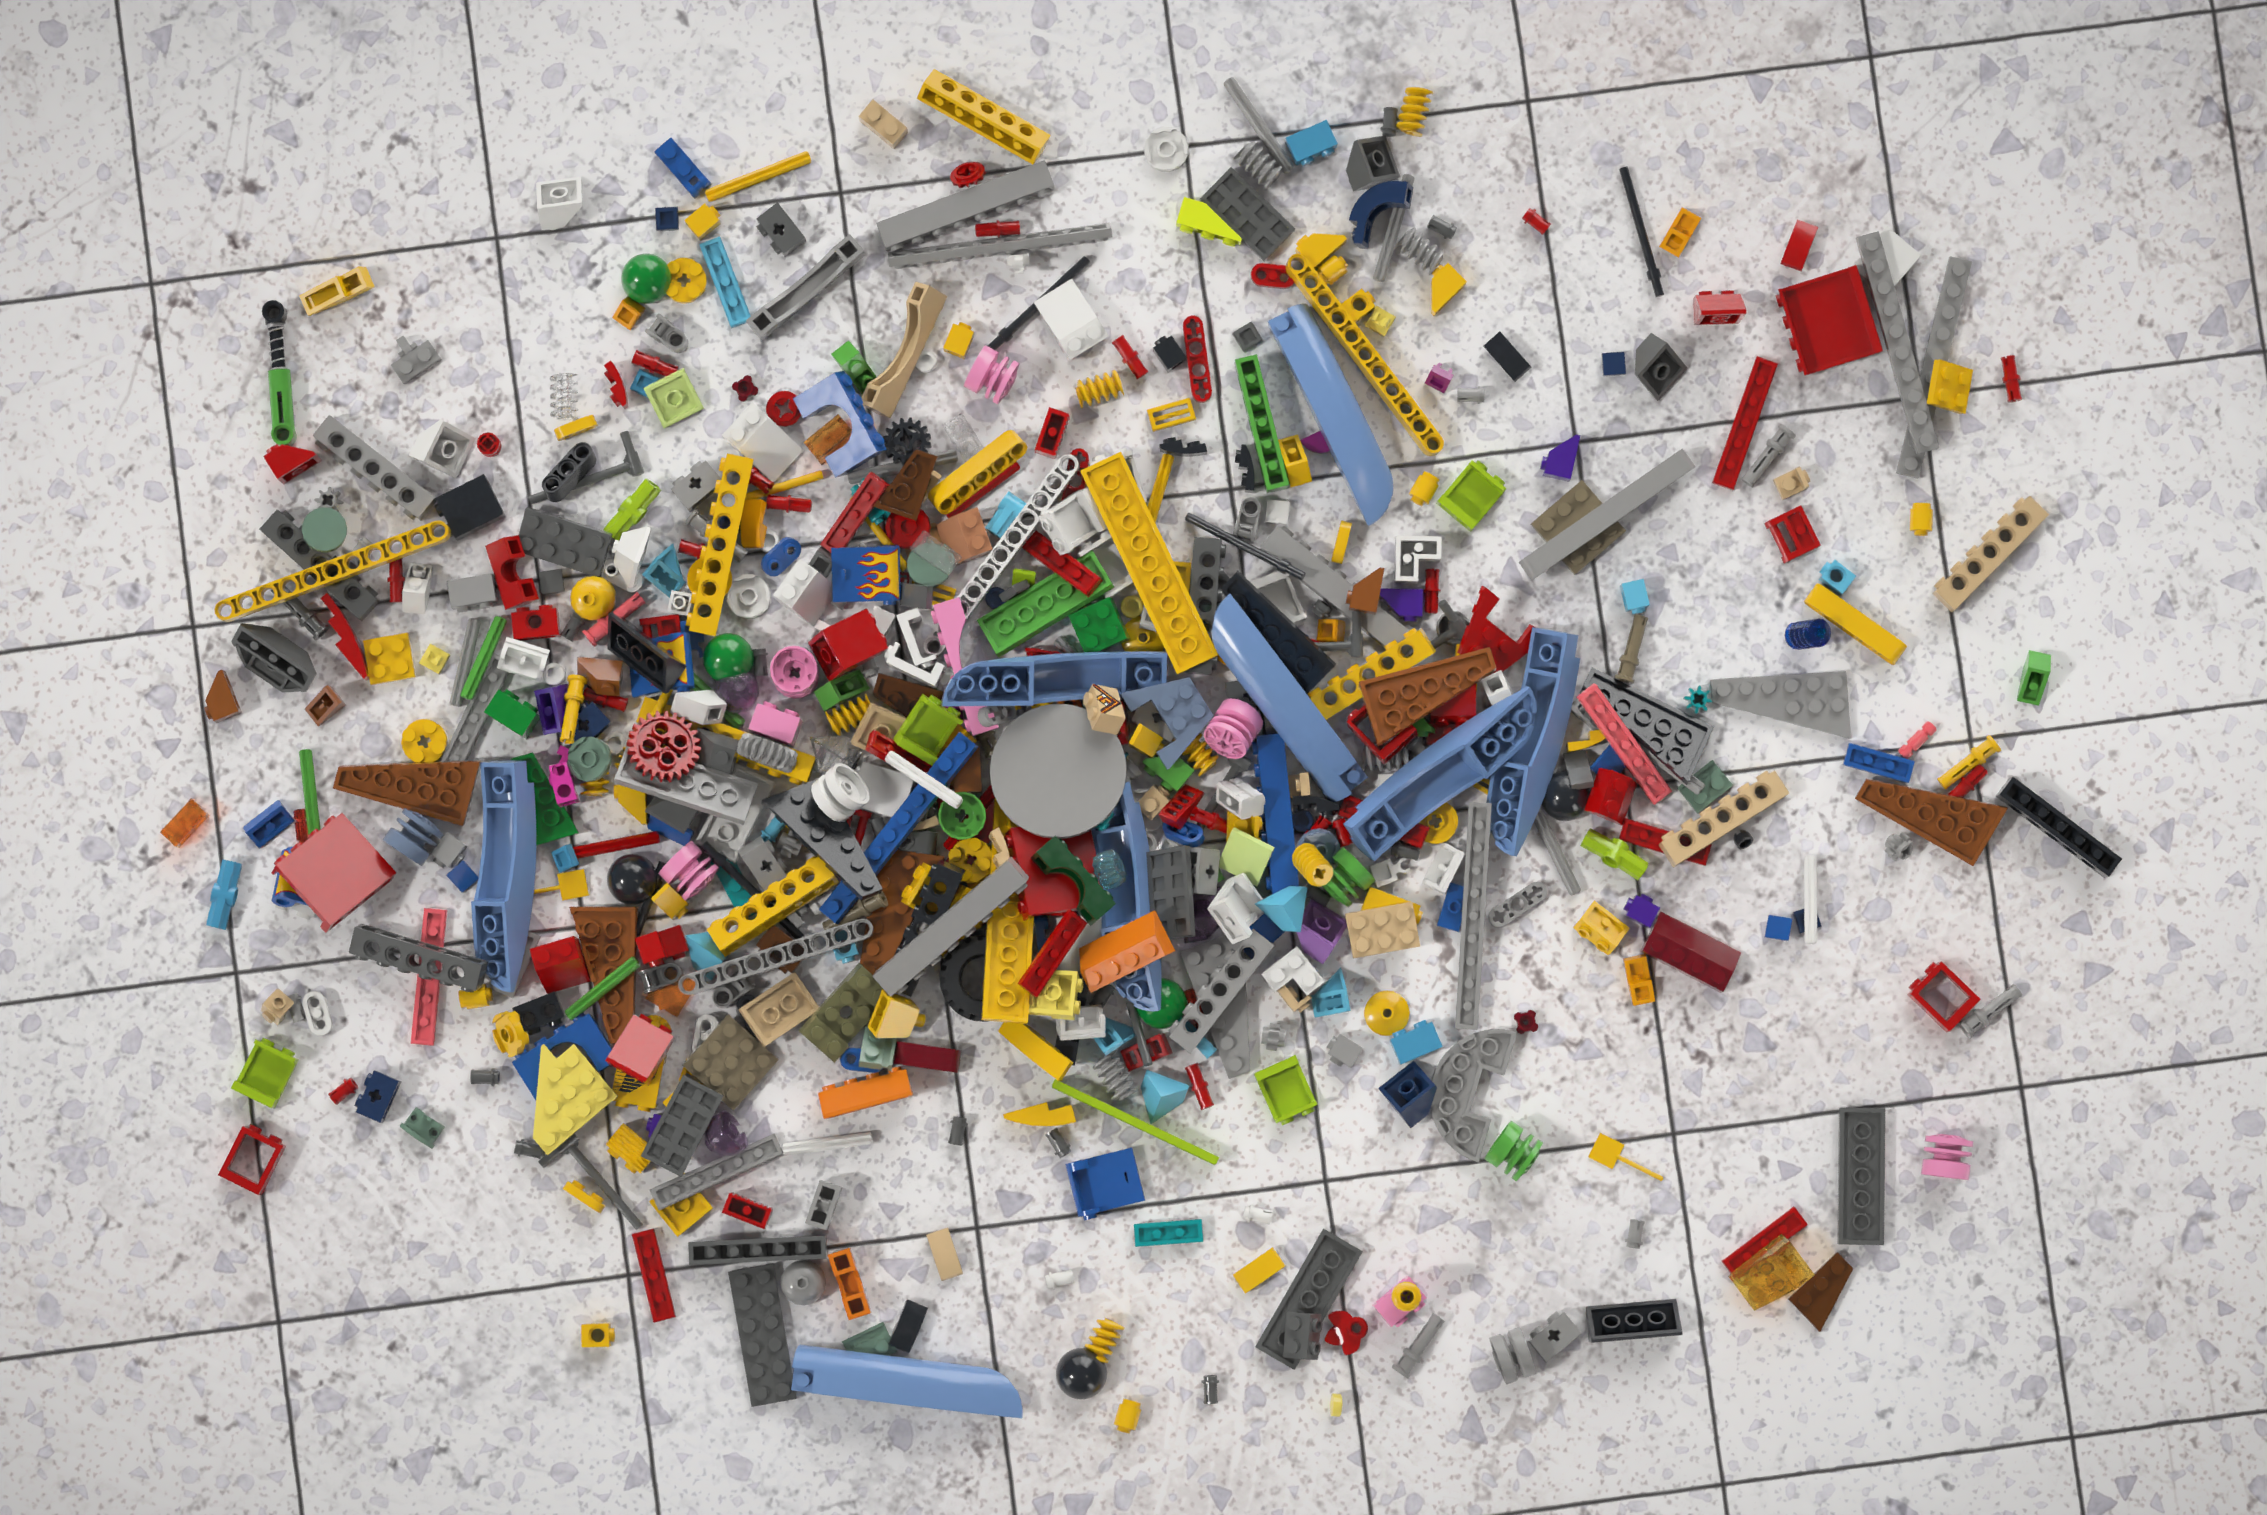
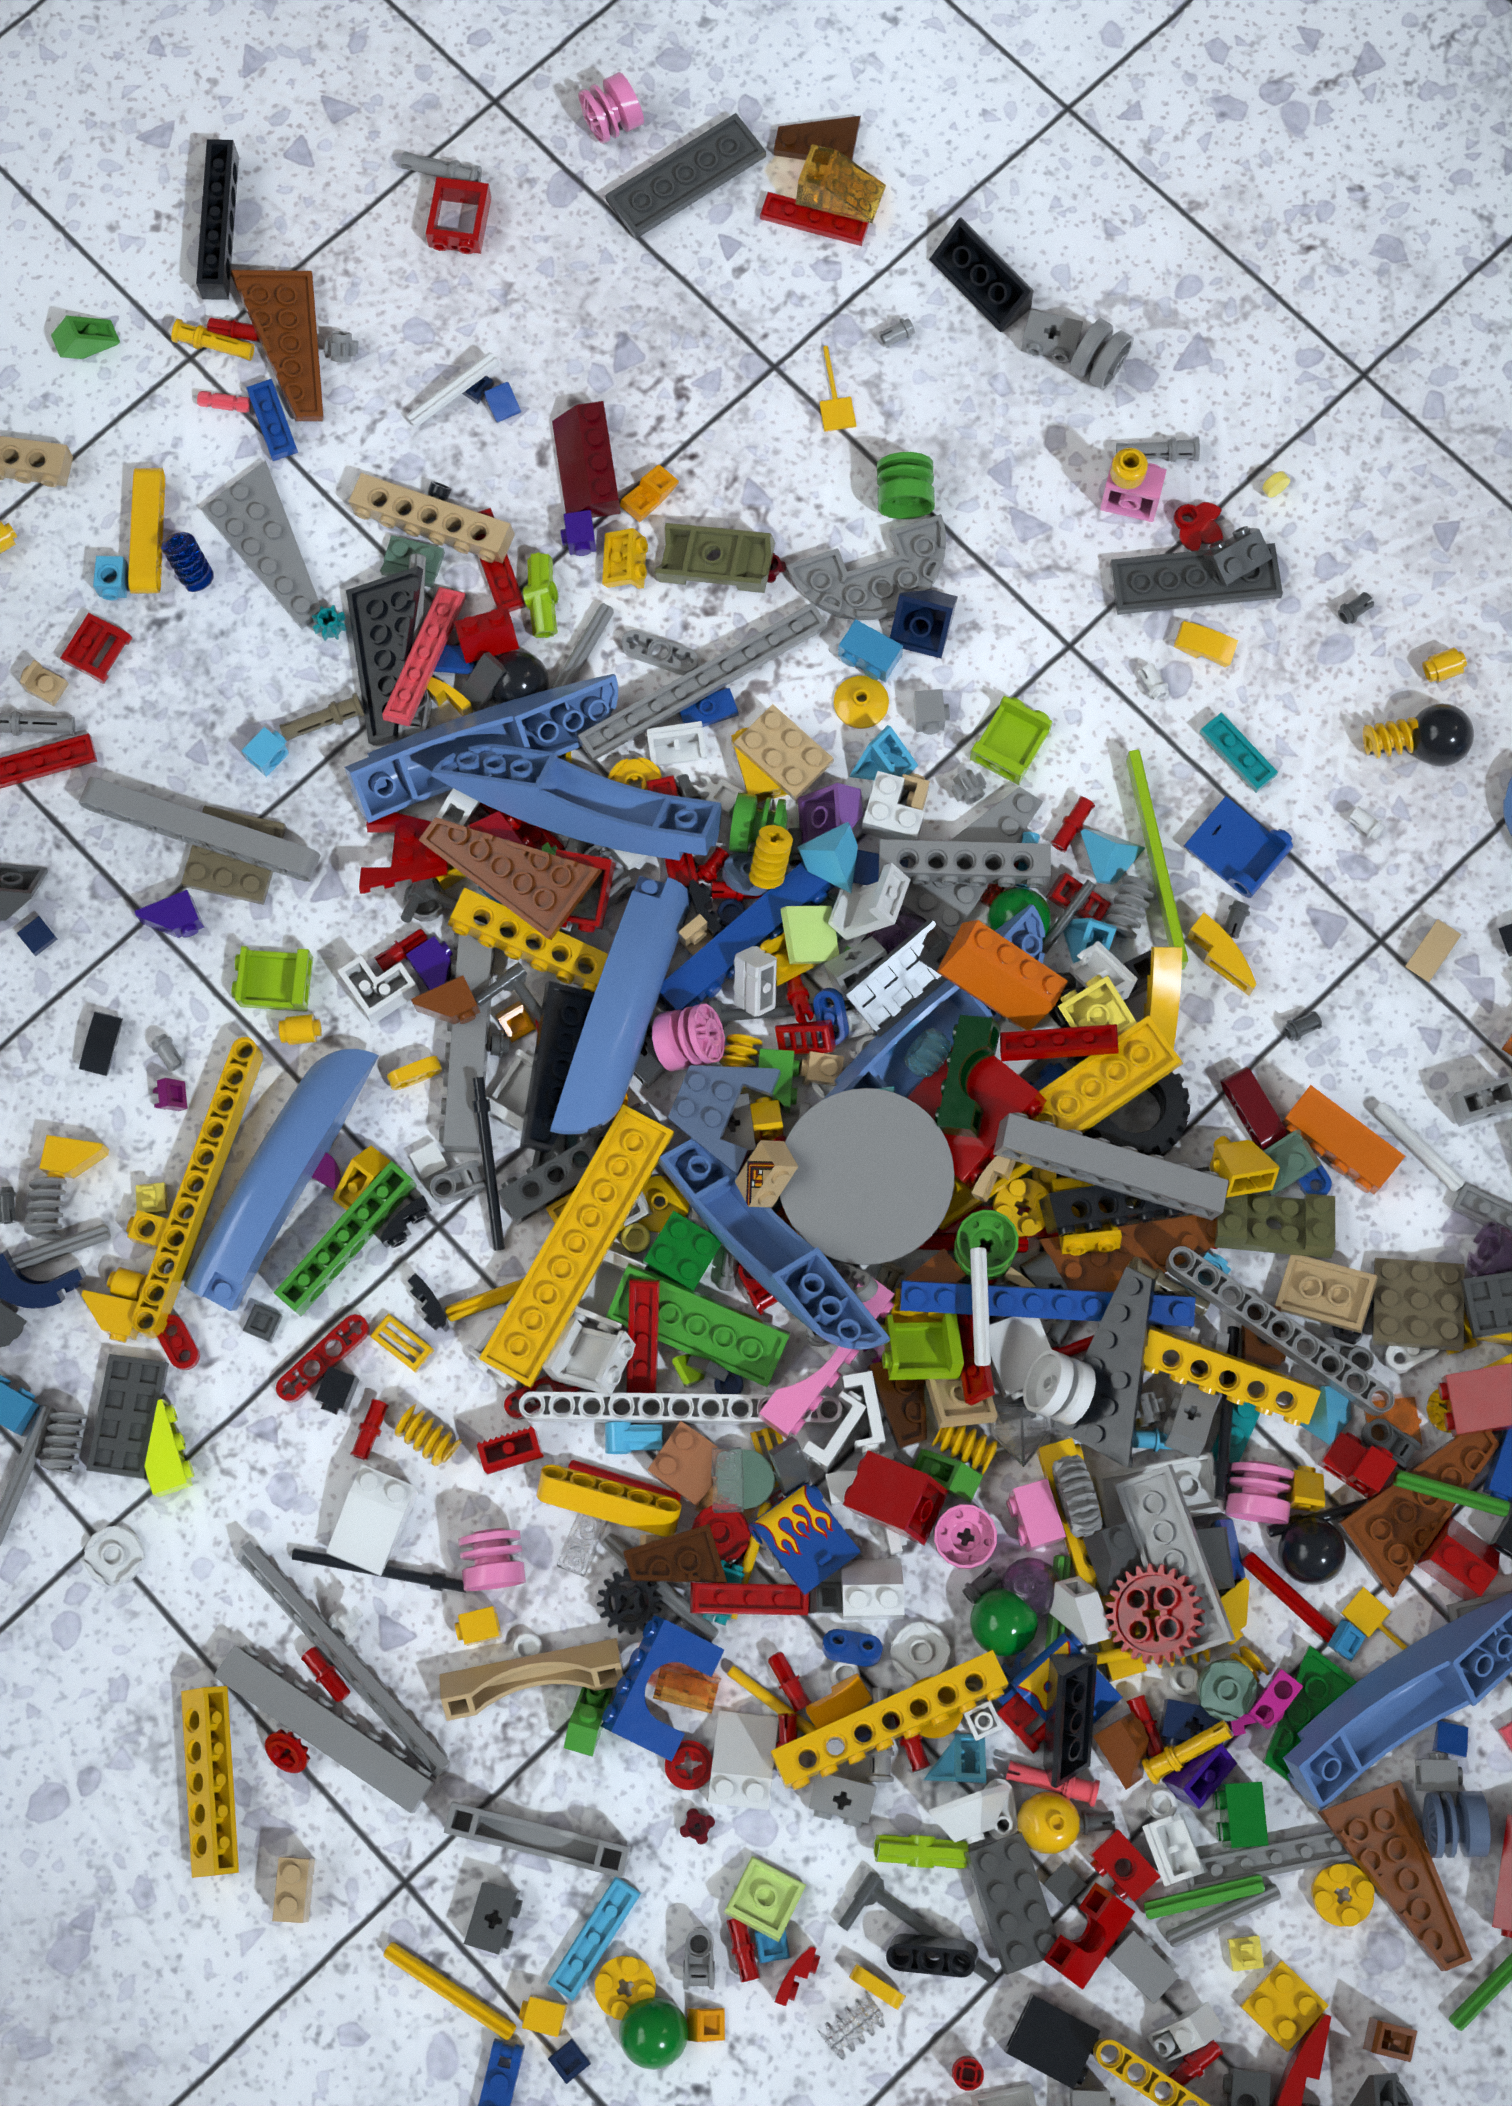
camera: 120 degrees left, 10 degrees down
(1539, 1002) = (742, 561): none -> olive piece

